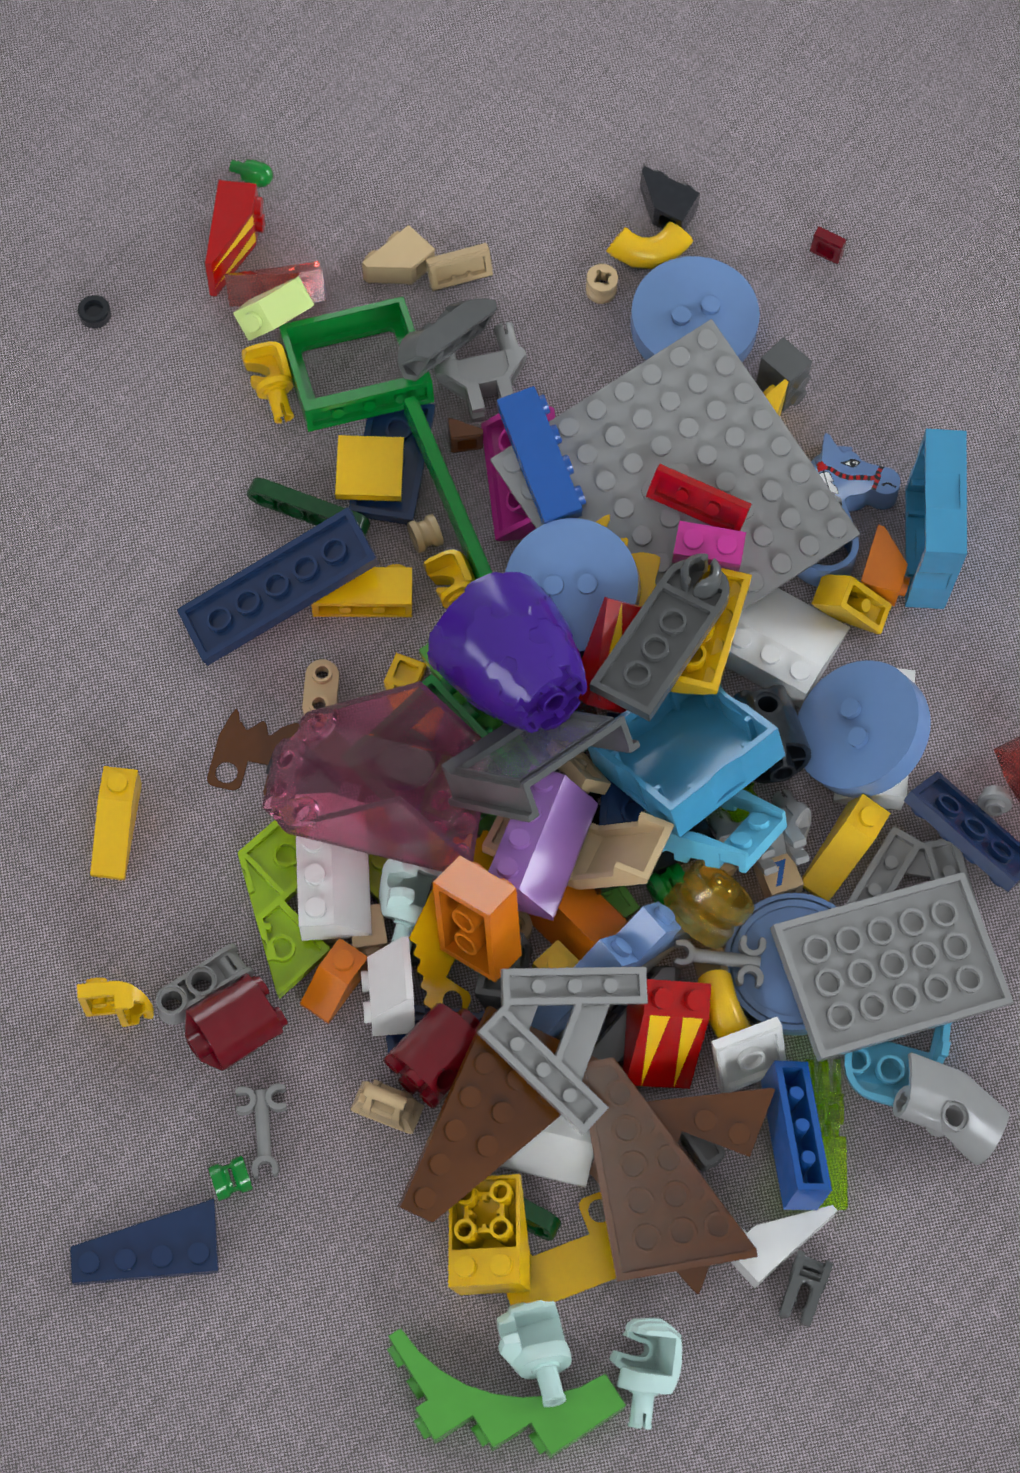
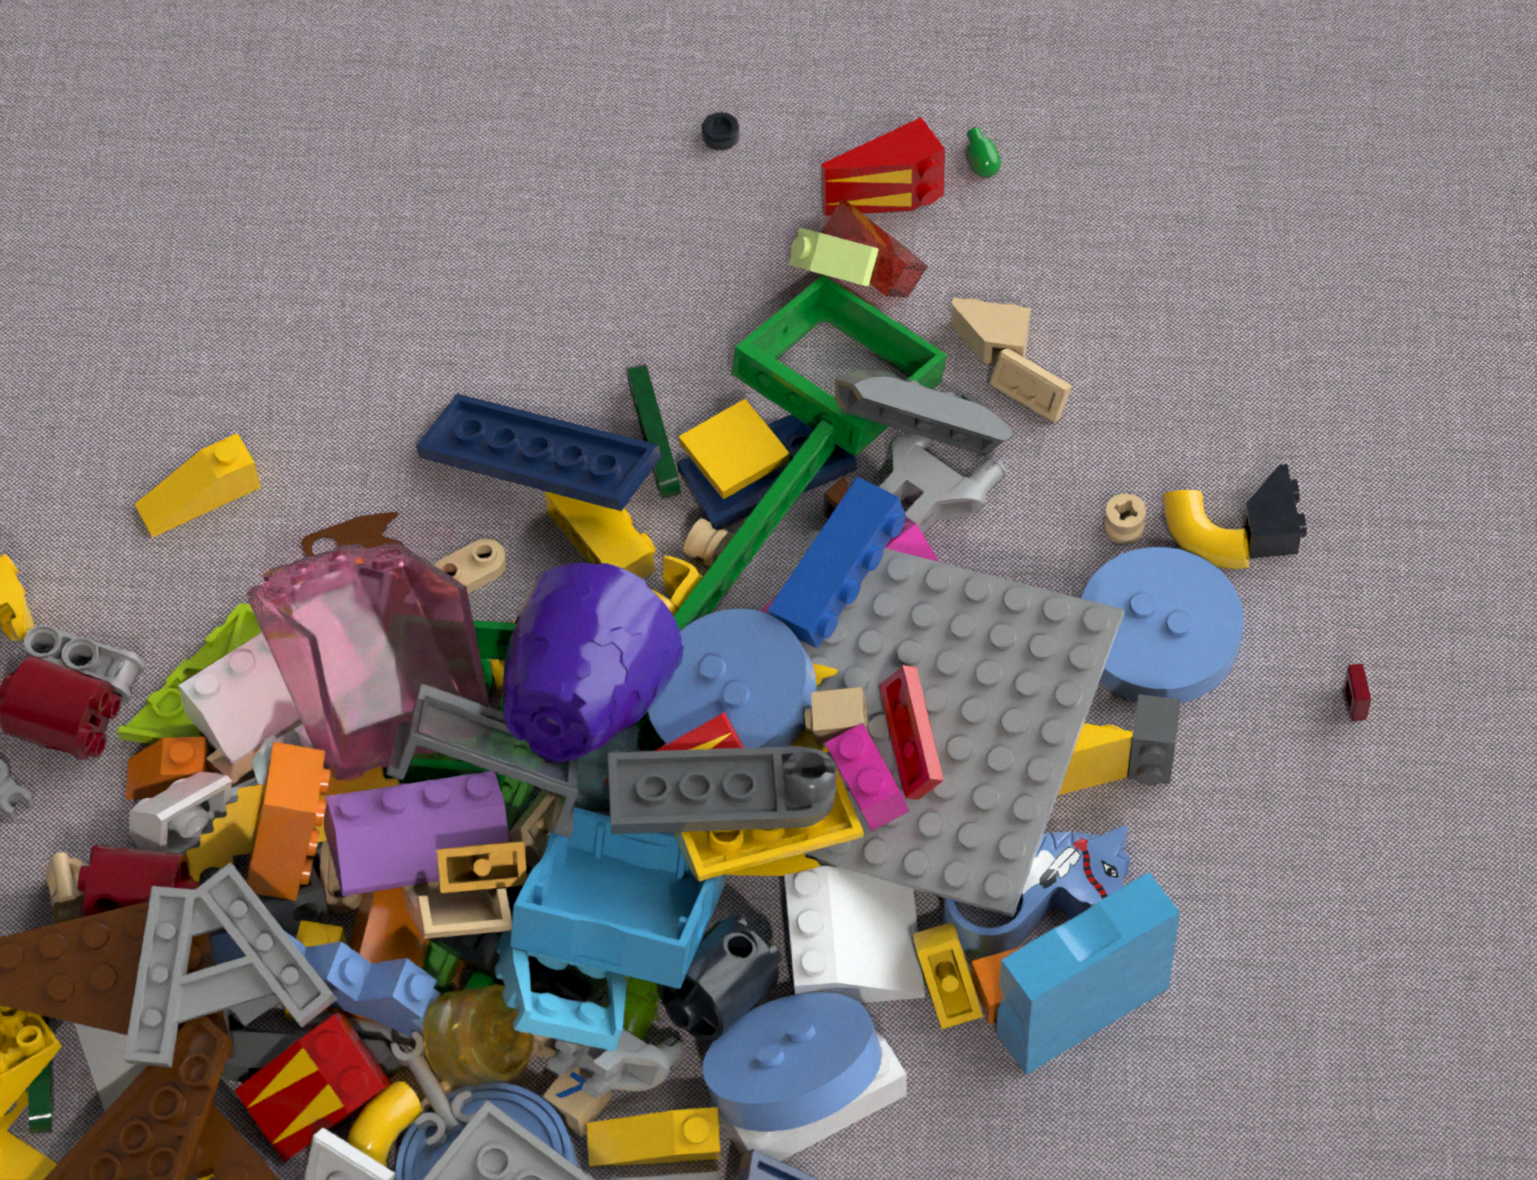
camera: 60 degrees right, 10 degrees down
(270, 360) = (780, 287): yellow piece -> none
(606, 813) = (482, 866): none -> pearl gold slope
(651, 535) = (835, 713): none -> tan brick

